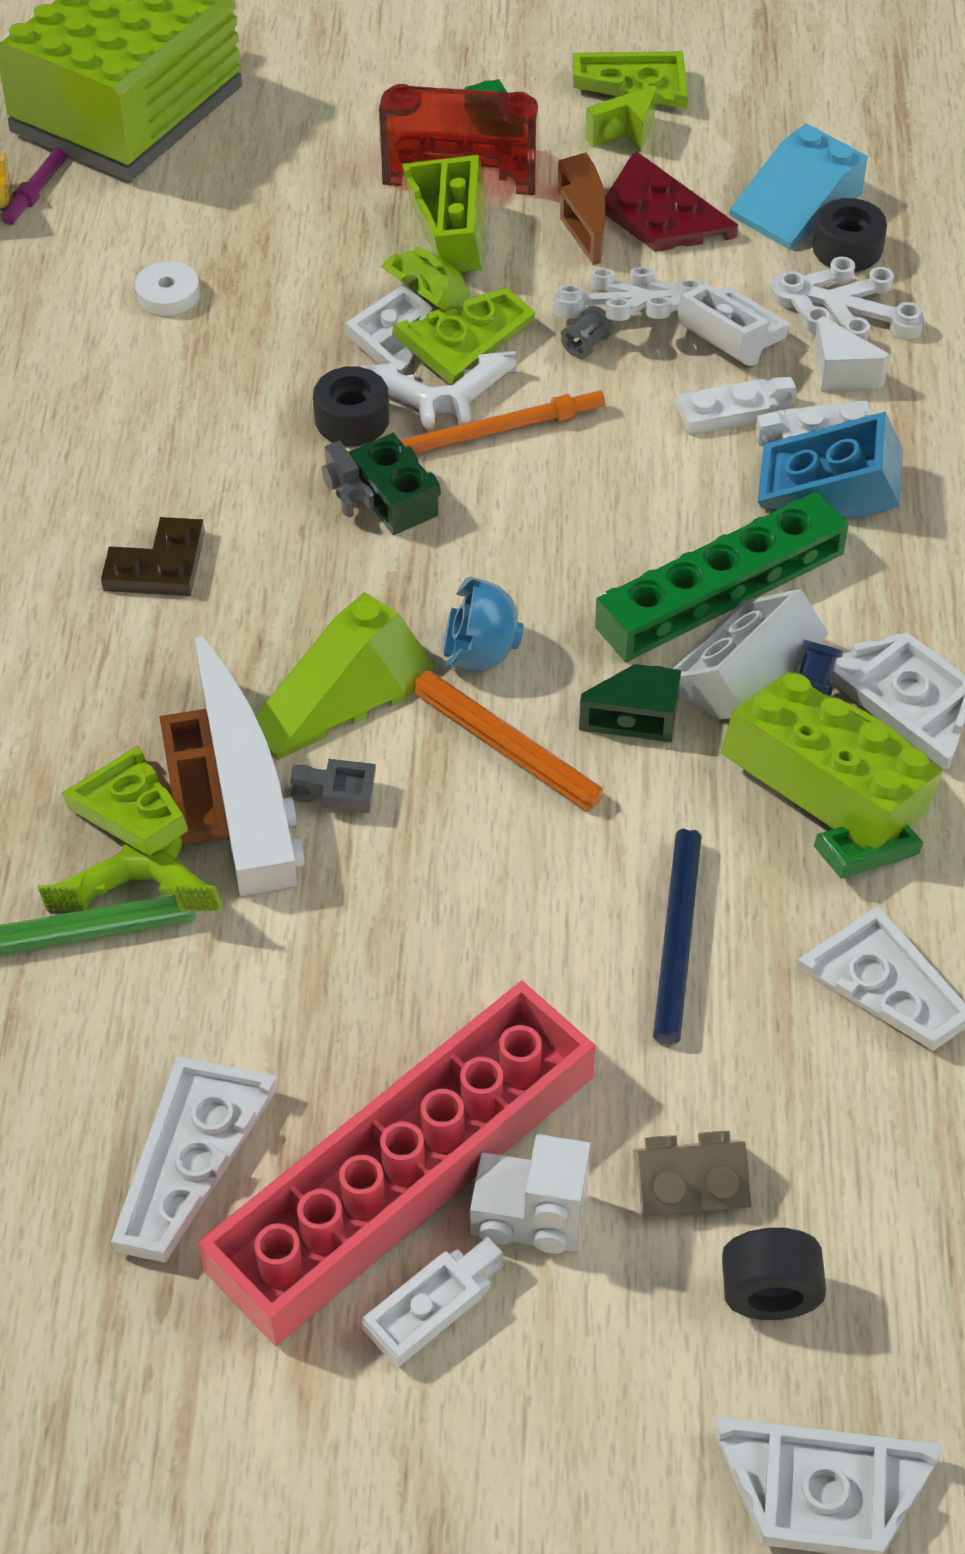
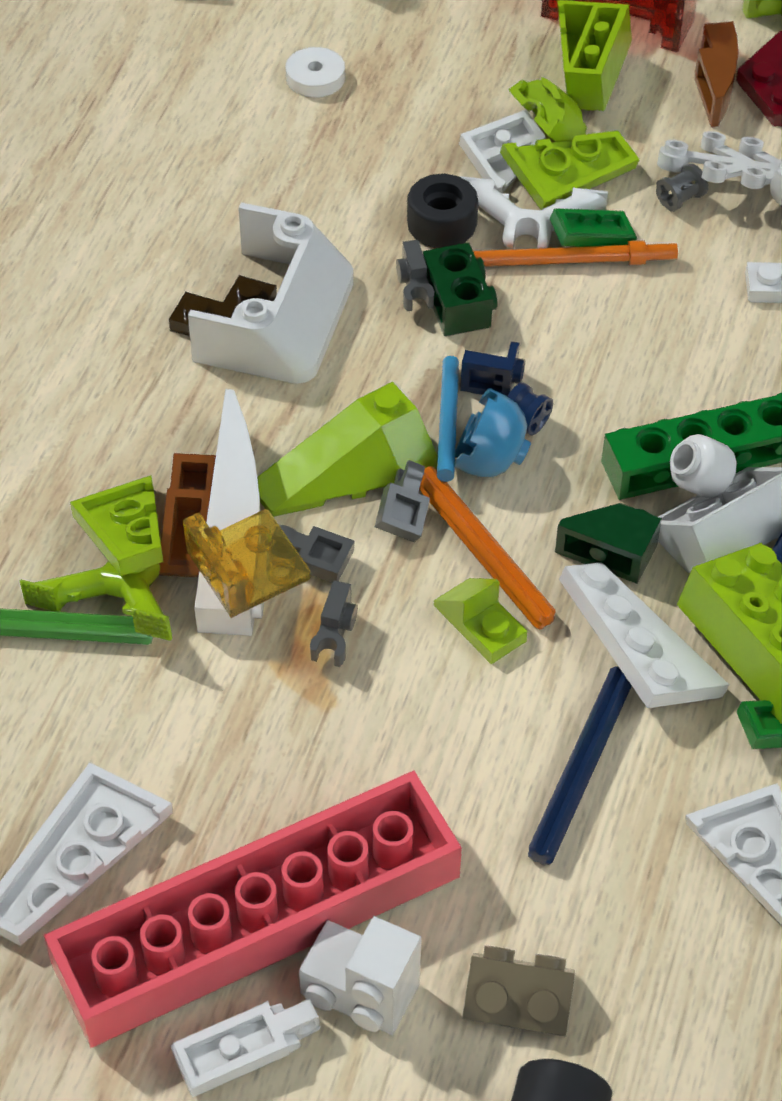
camera: 15 degrees right, 0 degrees up
(218, 573) = (285, 335): none -> white windscreen
(276, 808) = (245, 560): none -> clear yellow bracket
(384, 844) = (336, 617): none -> dark grey plate
(412, 719) = (401, 506): none -> dark grey plate
(429, 618) = (448, 419): none -> dark azure bar
(454, 562) = (488, 371): none -> dark blue bracket
(510, 391) = (592, 227): none -> green plate
(515, 585) = (535, 407): none -> dark blue wheel
(527, 813) = (481, 619): none -> lime slope
(701, 802) = (642, 644): none -> white wing
(706, 608) = (703, 466): none -> white head

